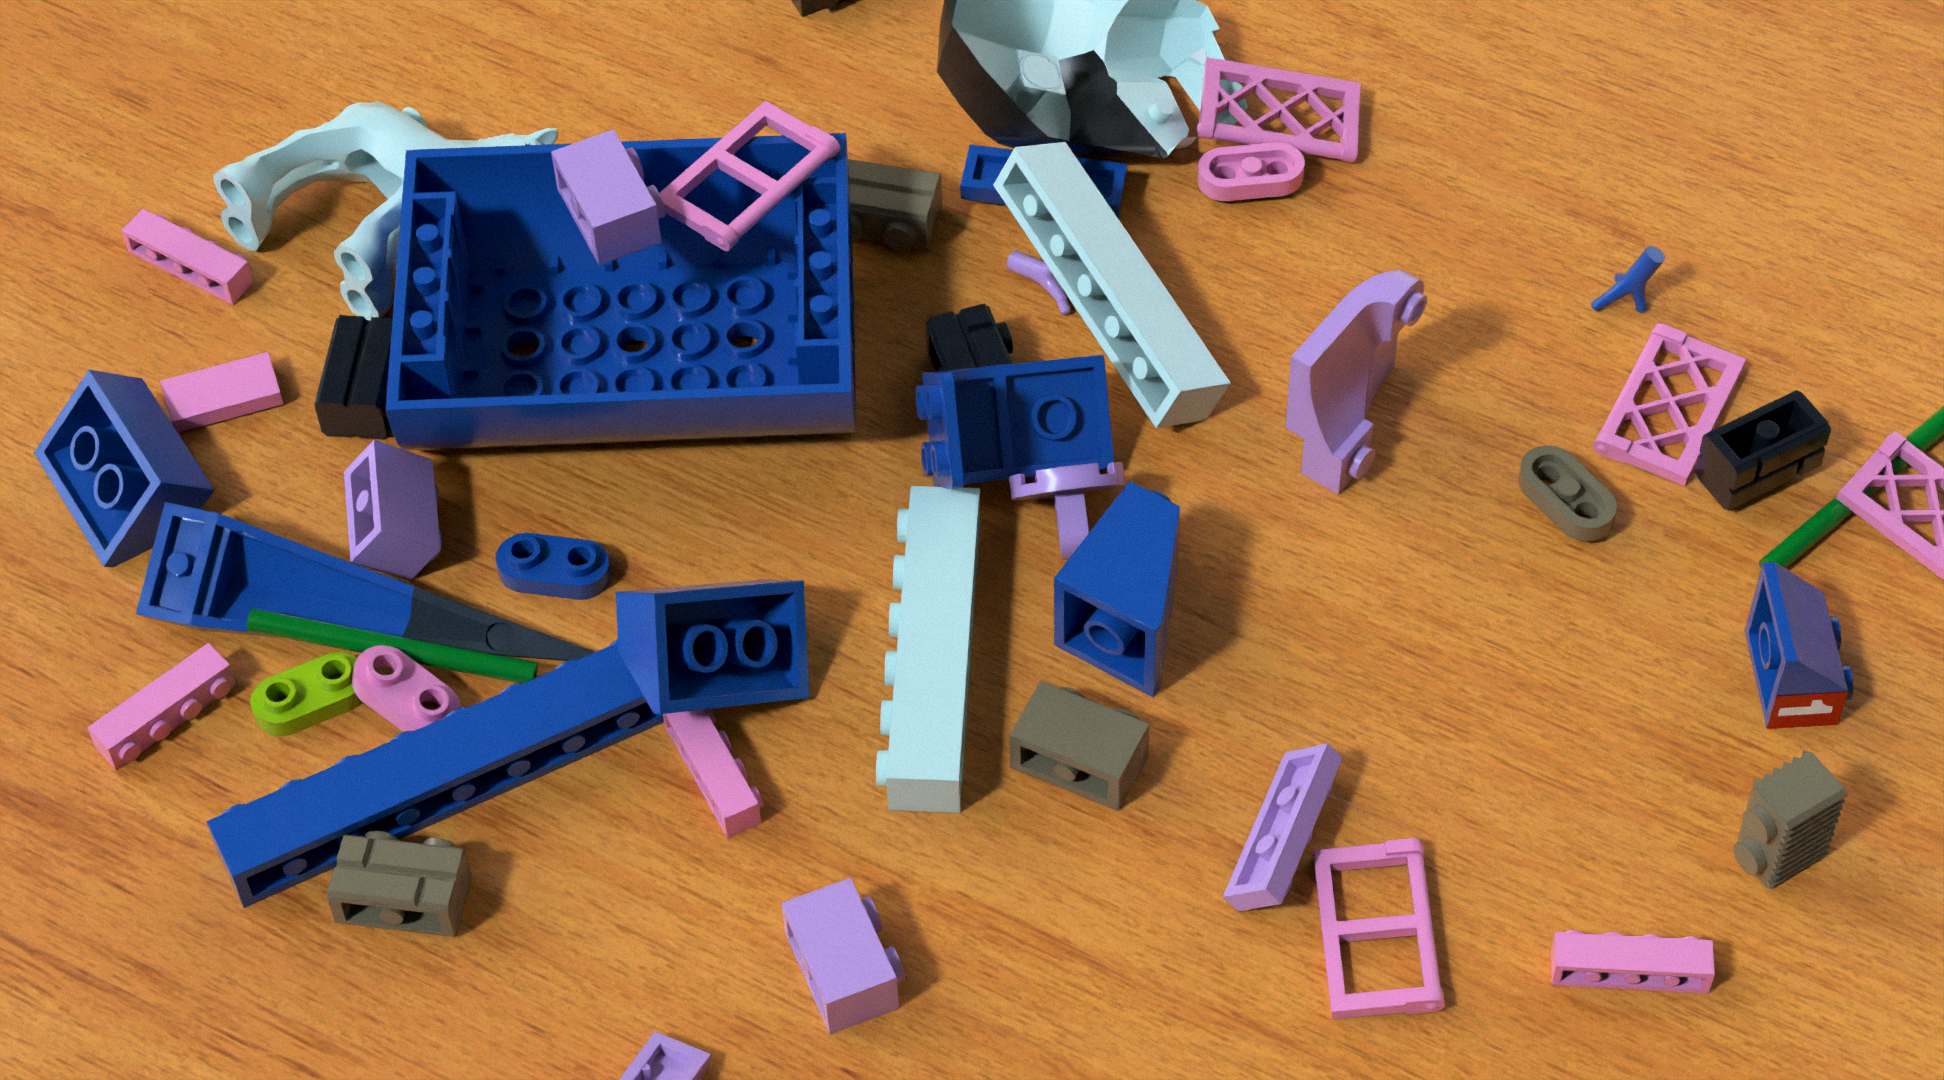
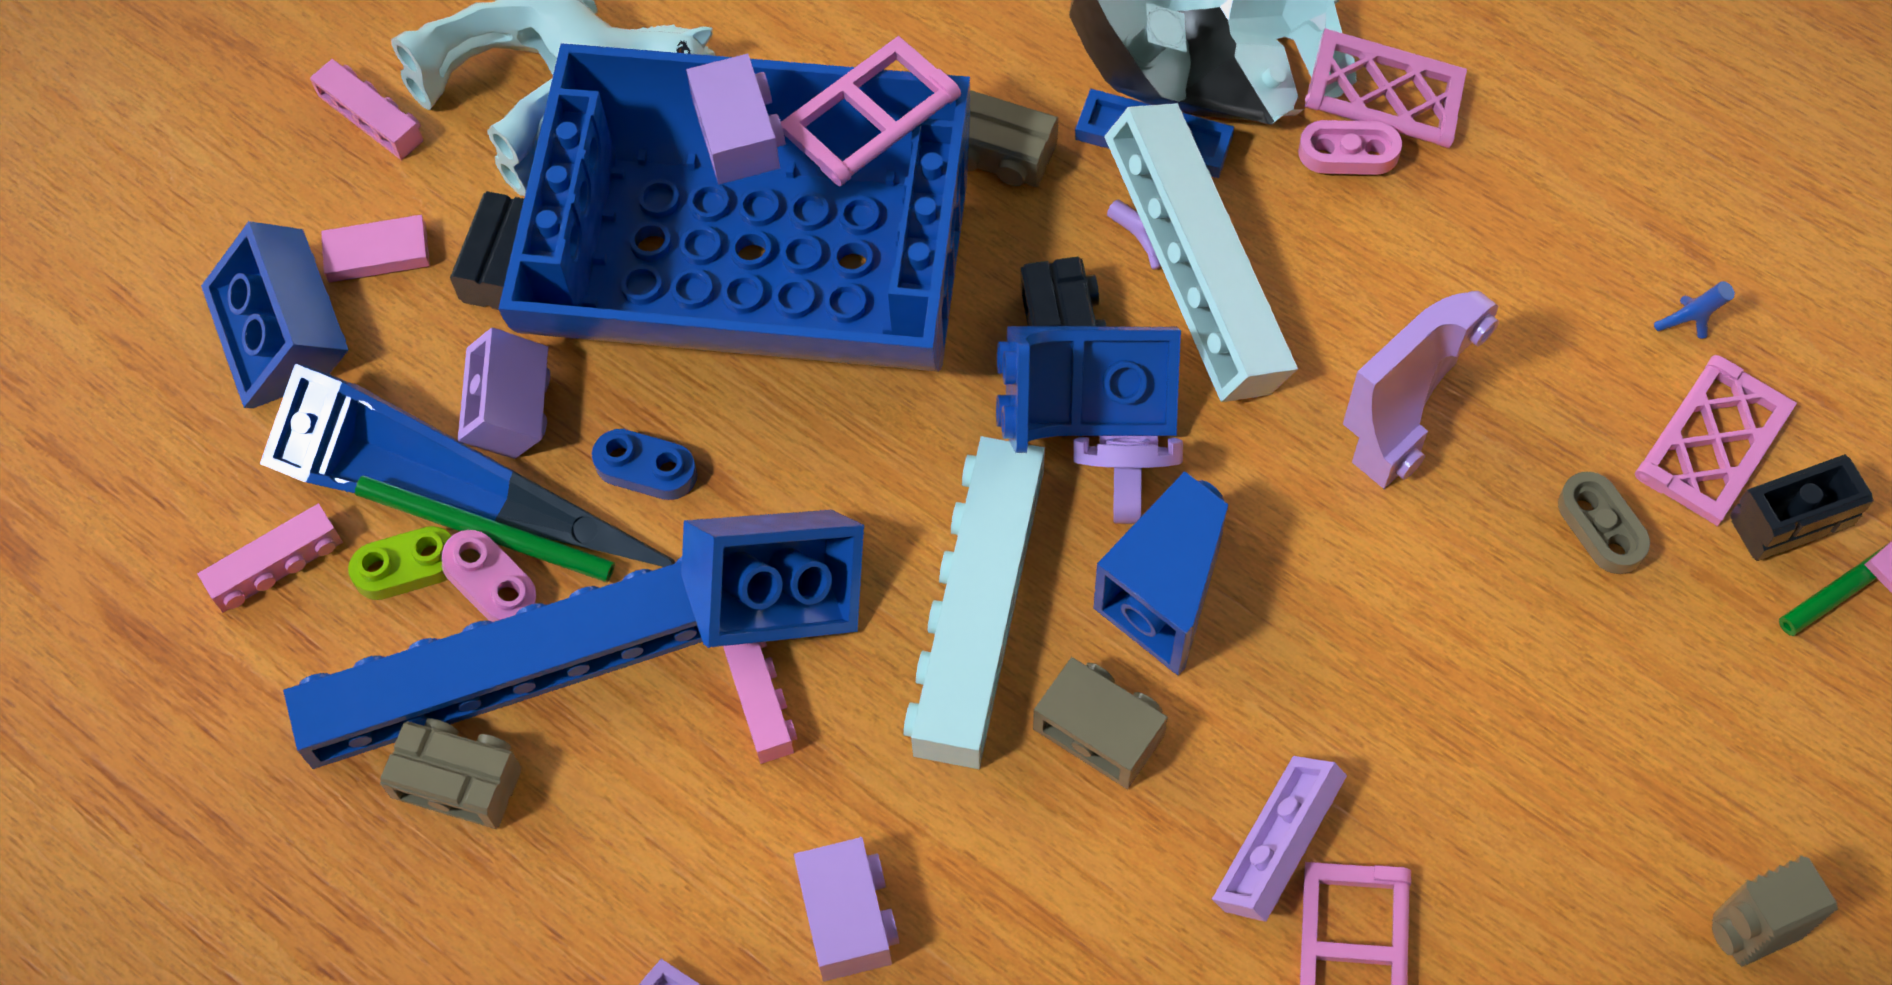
camera: 10 degrees right, 10 degrees up
(1795, 652) = (1803, 727): blue slope -> none

